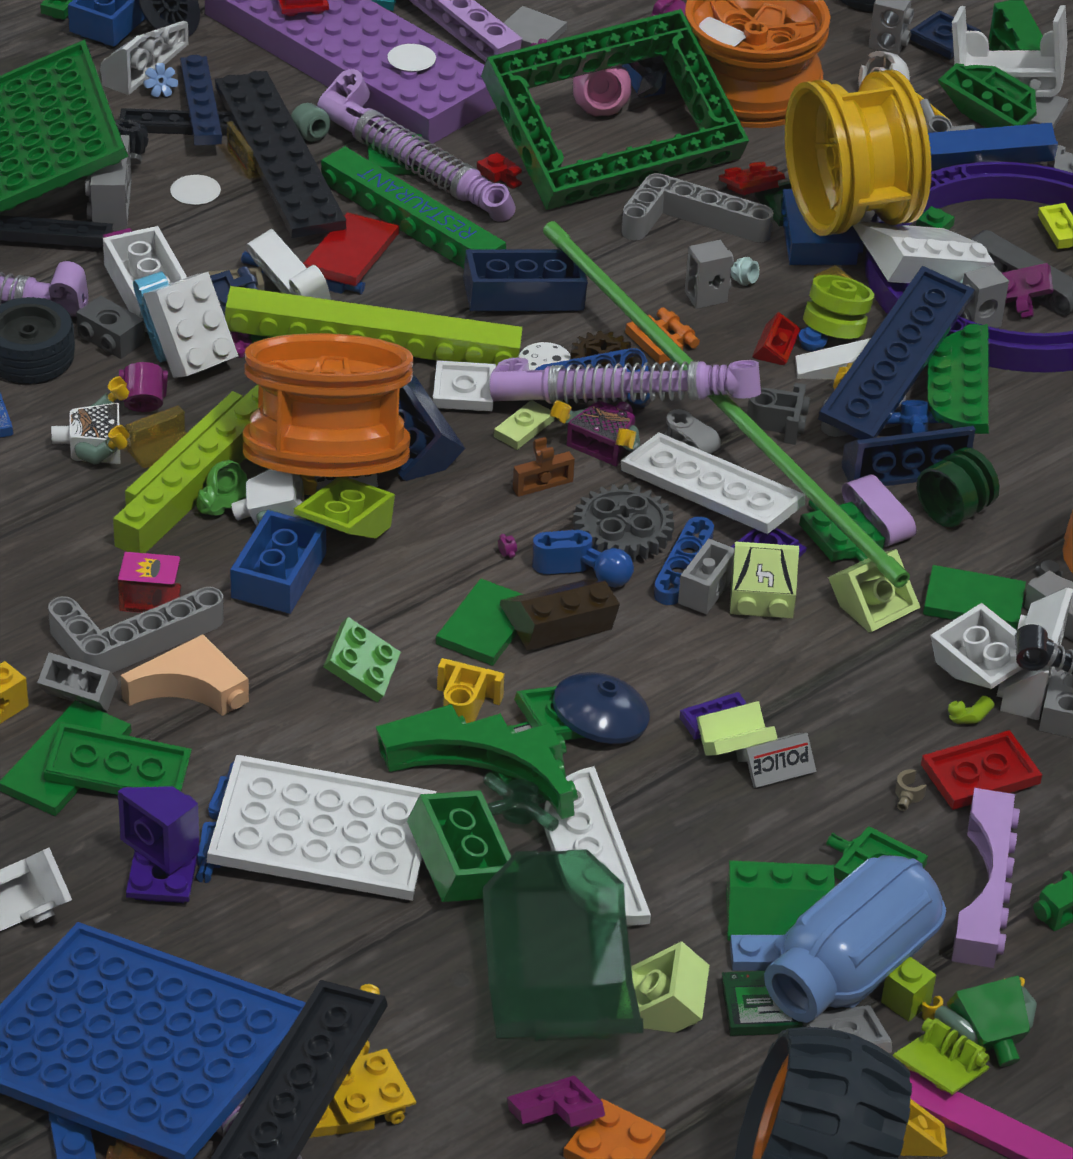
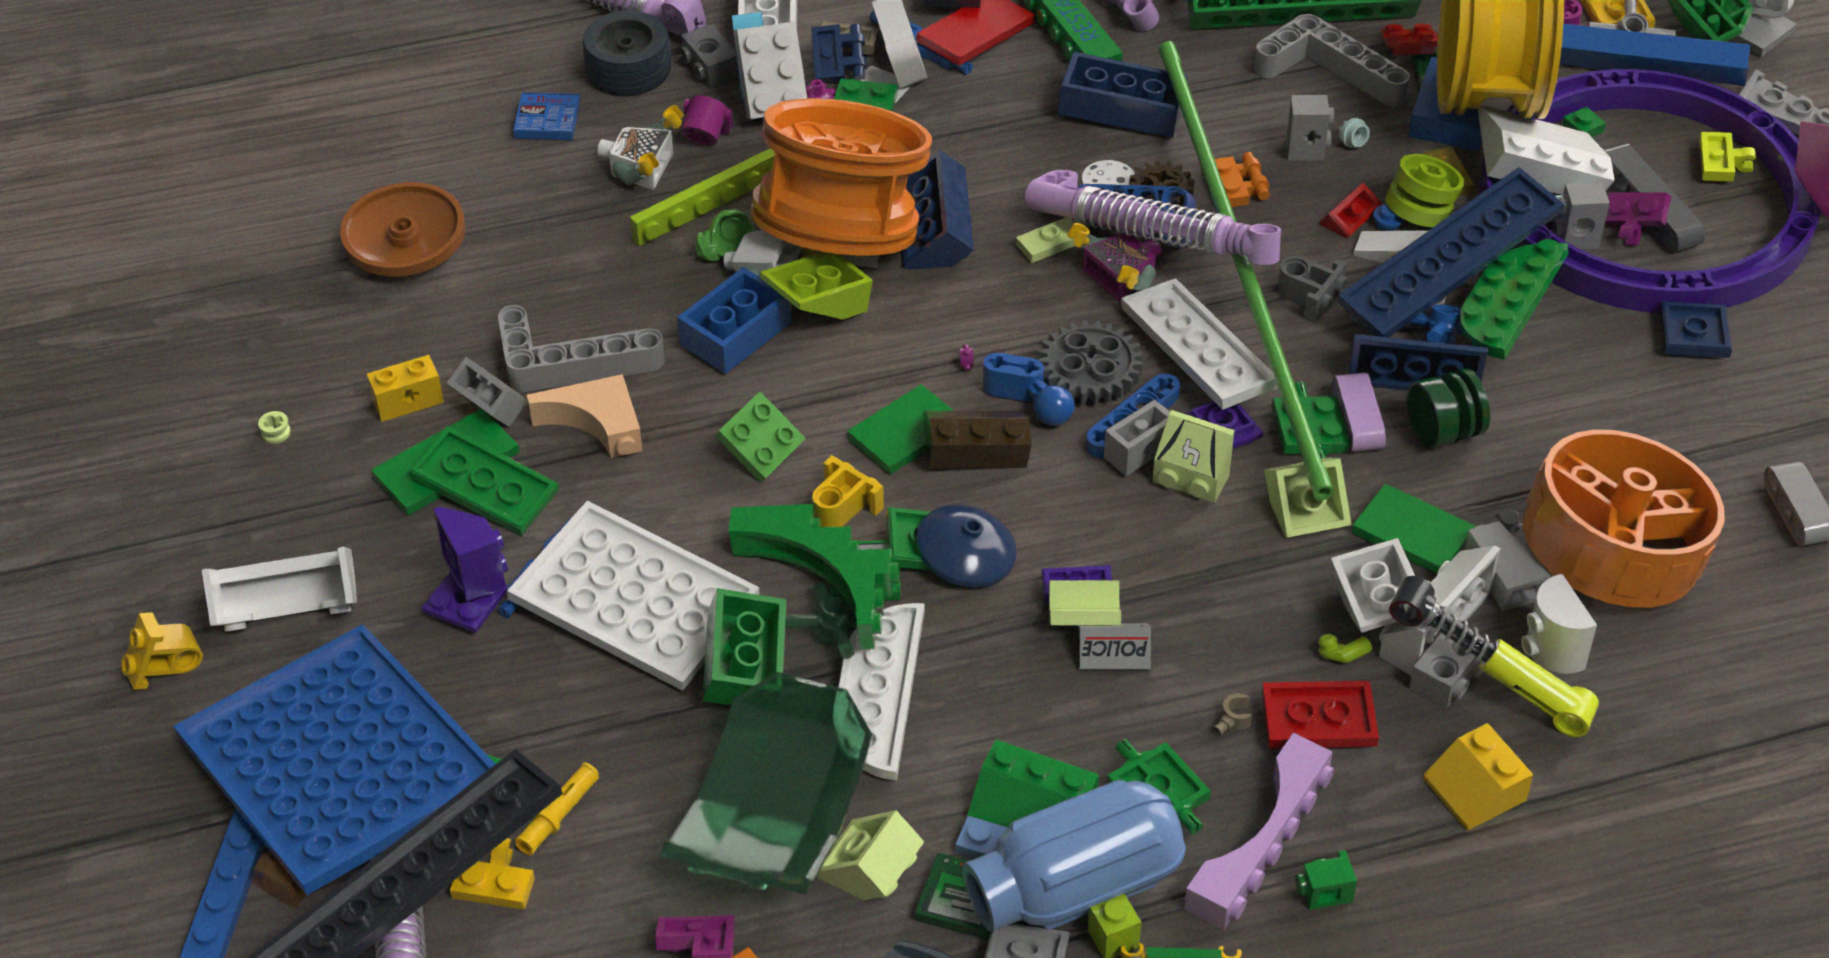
camera: 25 degrees right, 5 degrees up
(147, 581) = (604, 308): piece -> none
(155, 435) = (693, 166): clear yellow panel -> none
(177, 487) = (676, 228): lime brick -> none
(374, 1089) = (530, 869): yellow hinge -> none
(421, 333) = (948, 110): lime brick -> none
(463, 385) = (1005, 186): white plate -> none
(545, 471) = (1038, 291): dark orange plate -> none
(692, 432) = (1207, 286): light grey piece -> none

